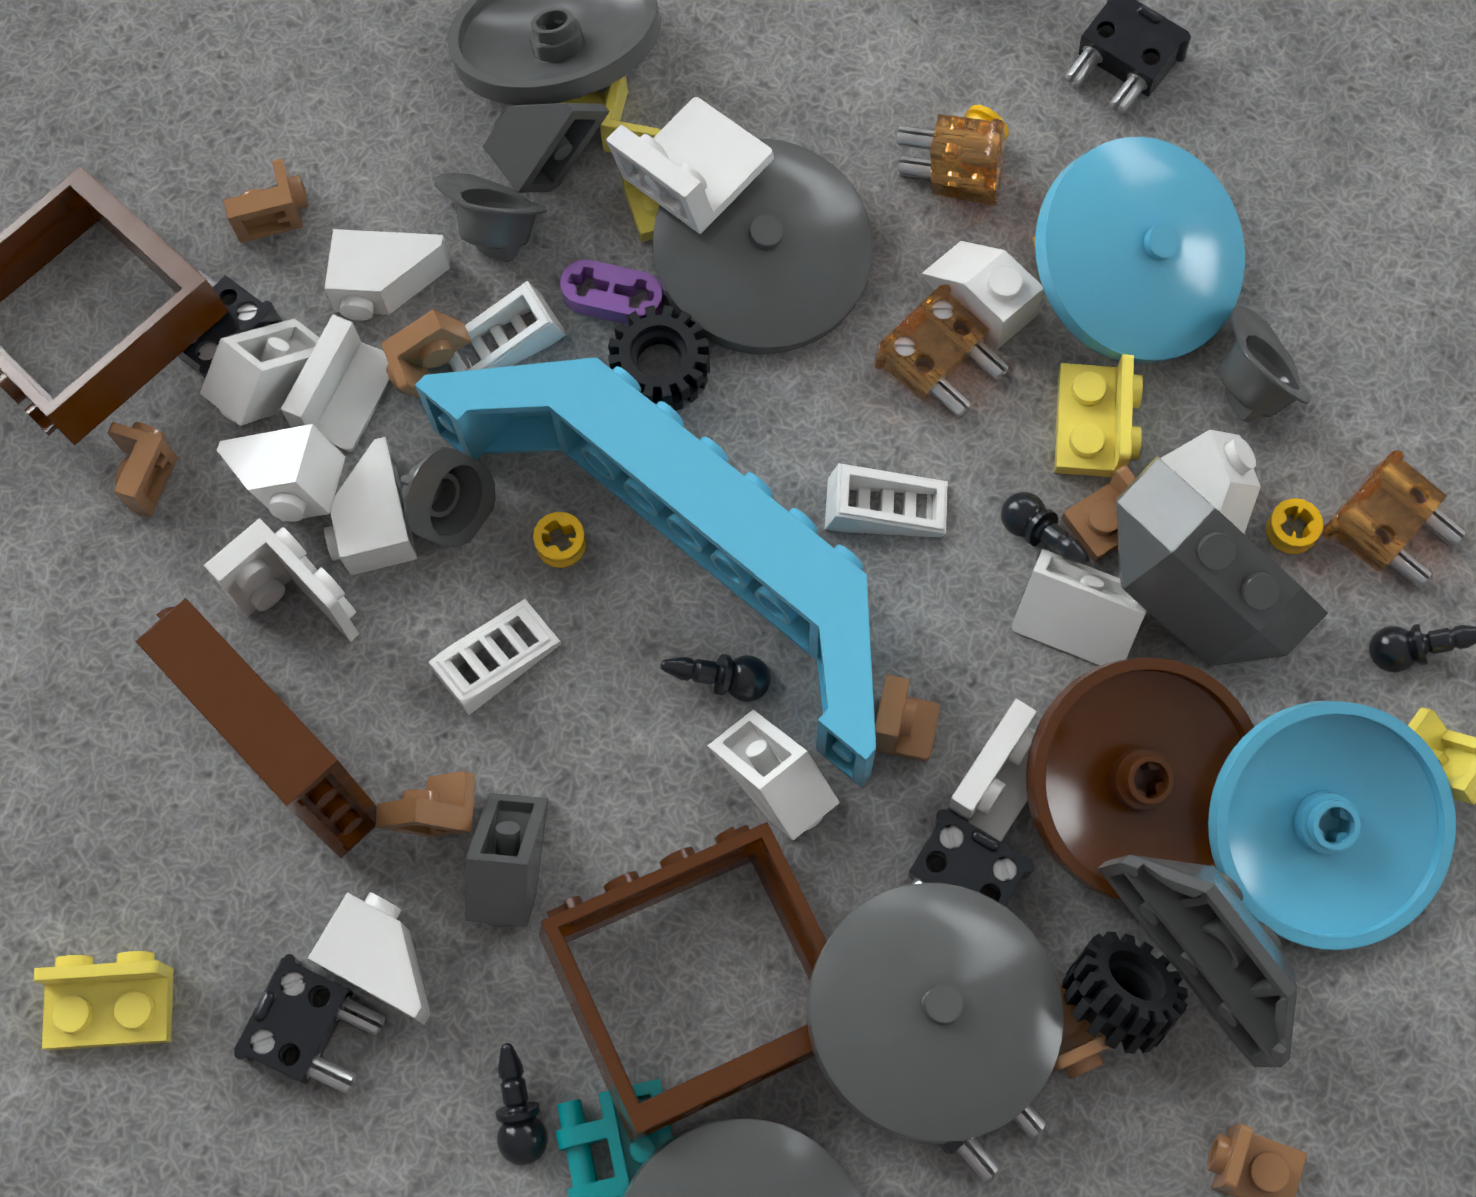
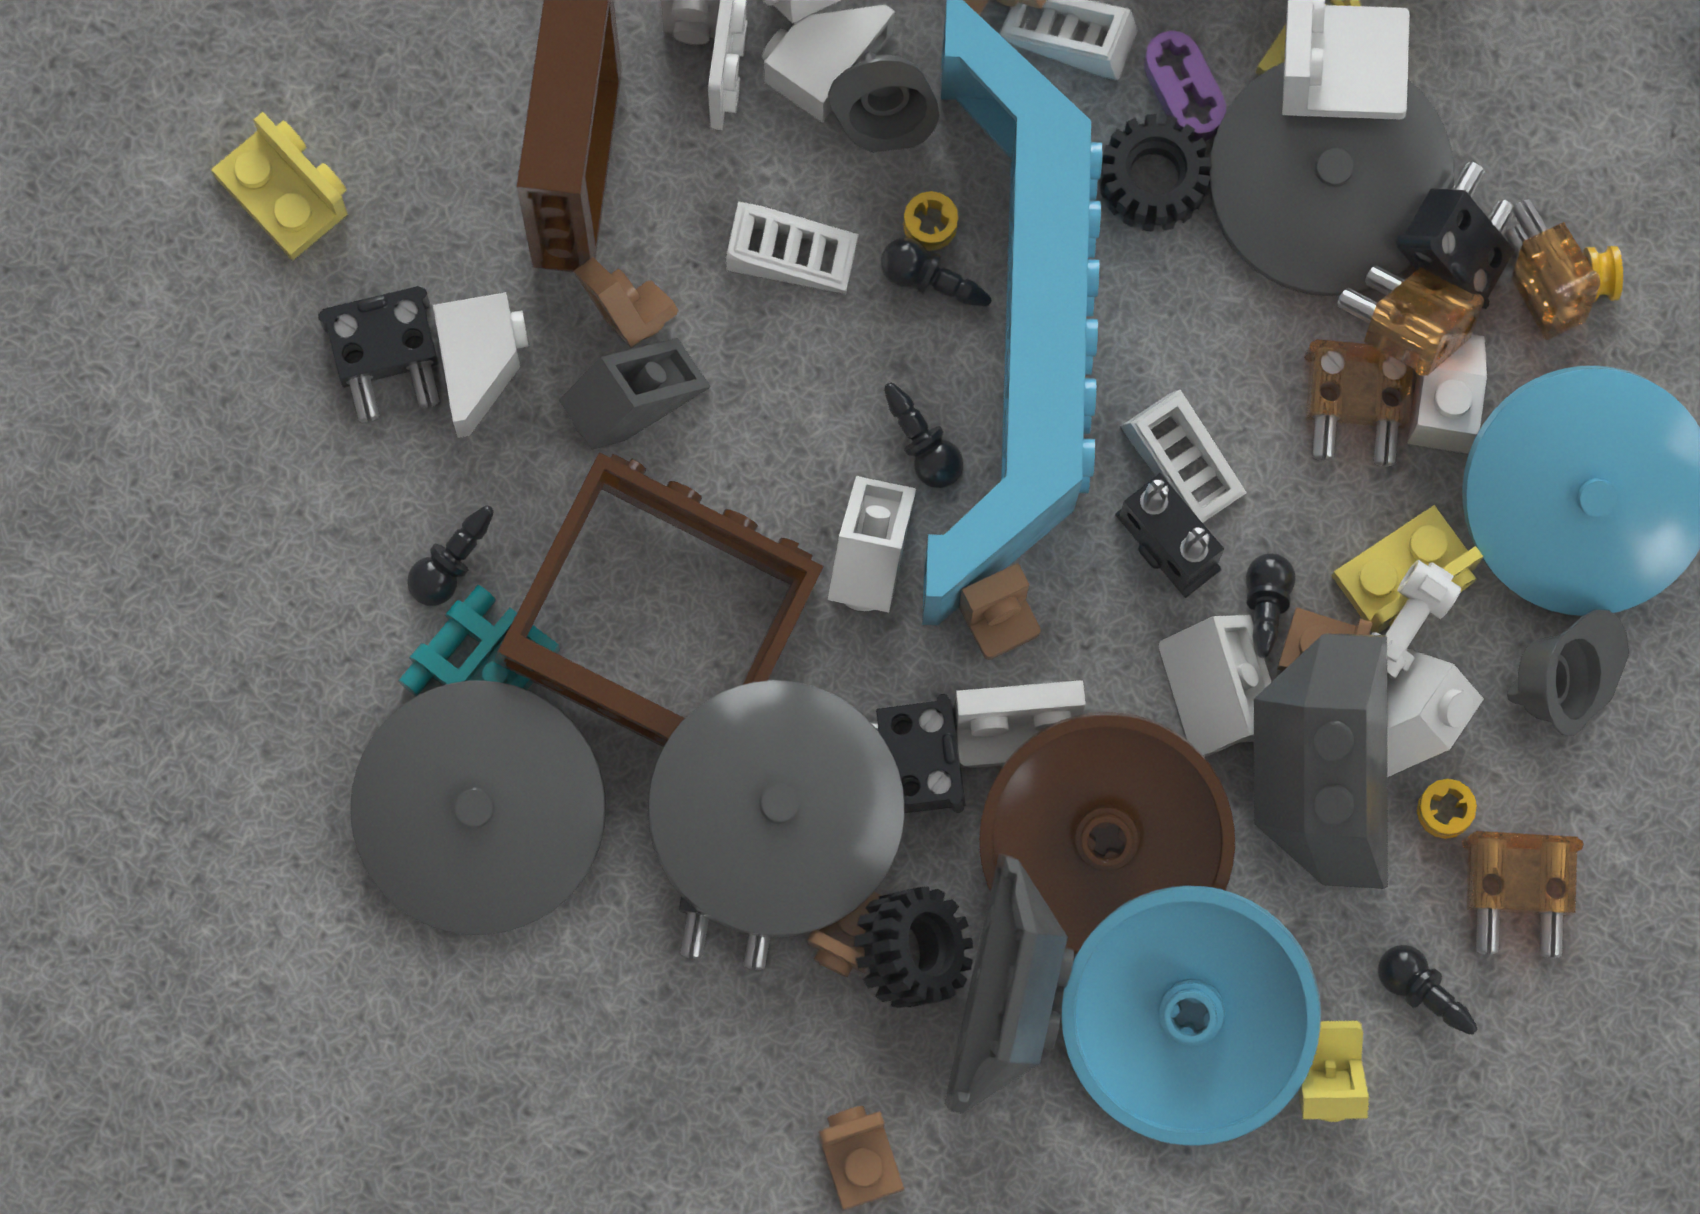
camera: 45 degrees right, 5 degrees up
(579, 579) = (908, 264): none -> black bar
(886, 199) = (1456, 237): none -> black piece
(928, 260) = (1417, 319): none -> clear orange piece
(940, 554) = (1171, 535): none -> black piece
(1138, 406) = (1428, 591): none -> white bar

